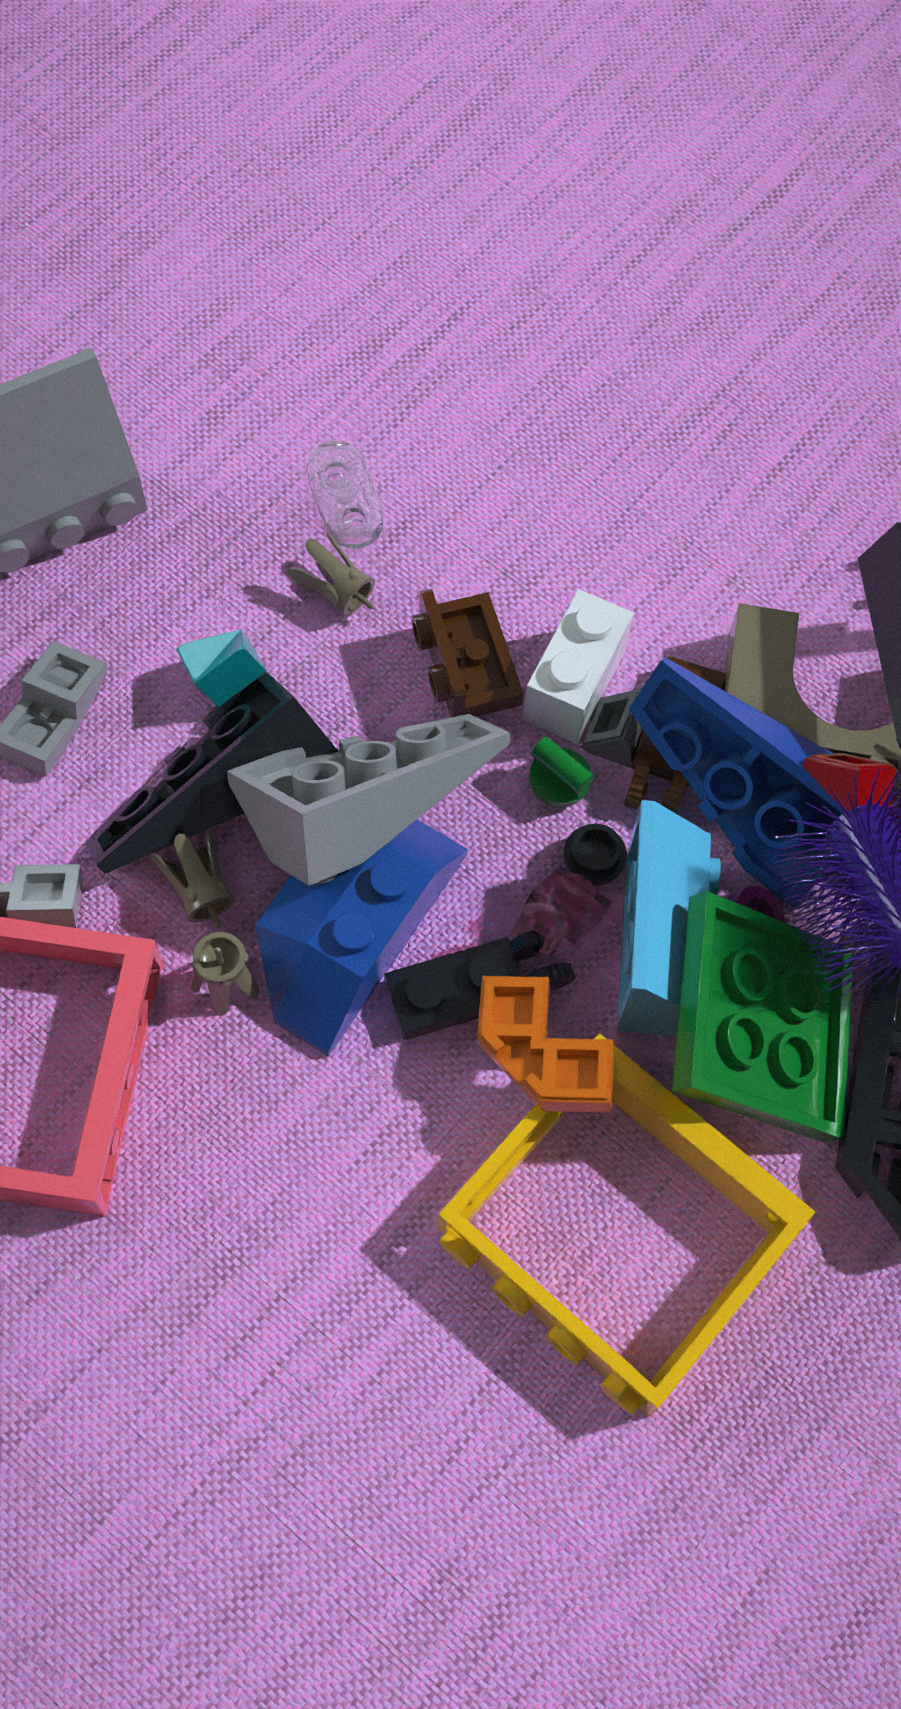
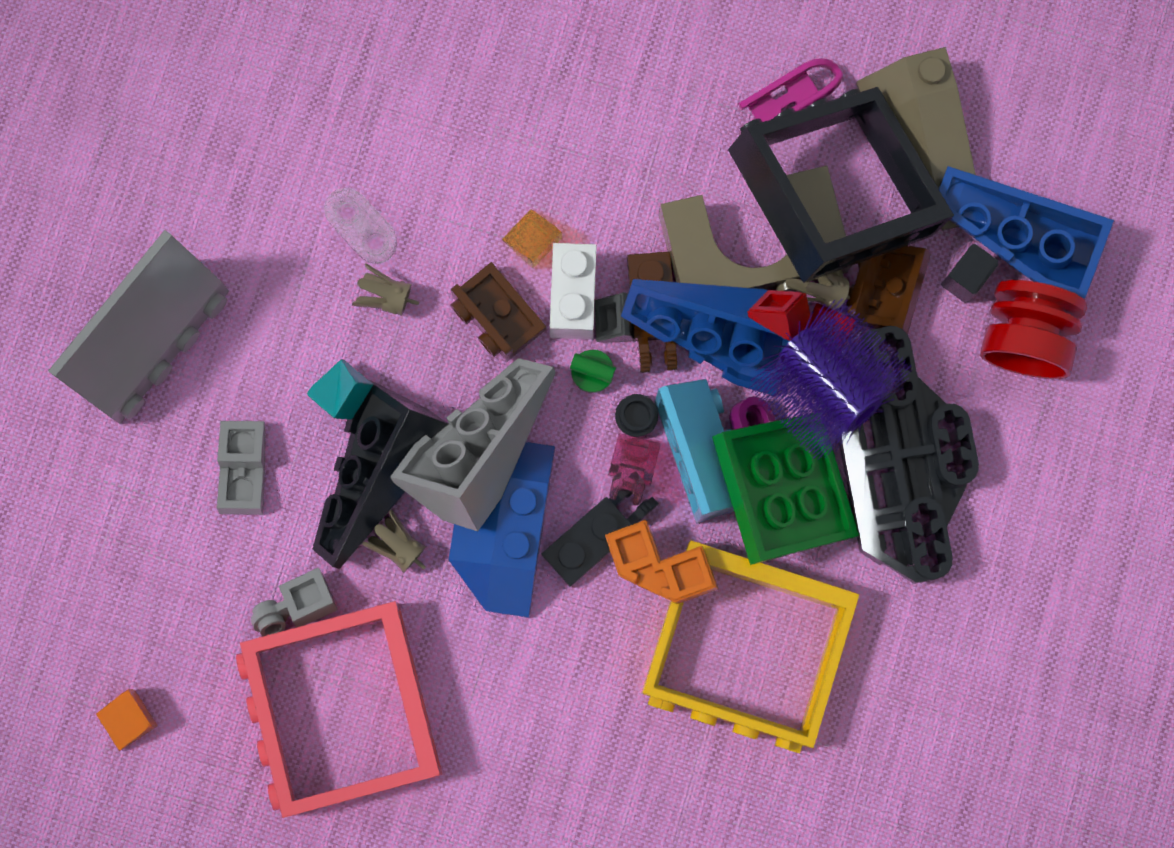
camera: 25 degrees left, 15 degrees up
(220, 963) = (442, 596): dark tan piece -> none
(551, 592) = (532, 238): none -> clear yellow slope

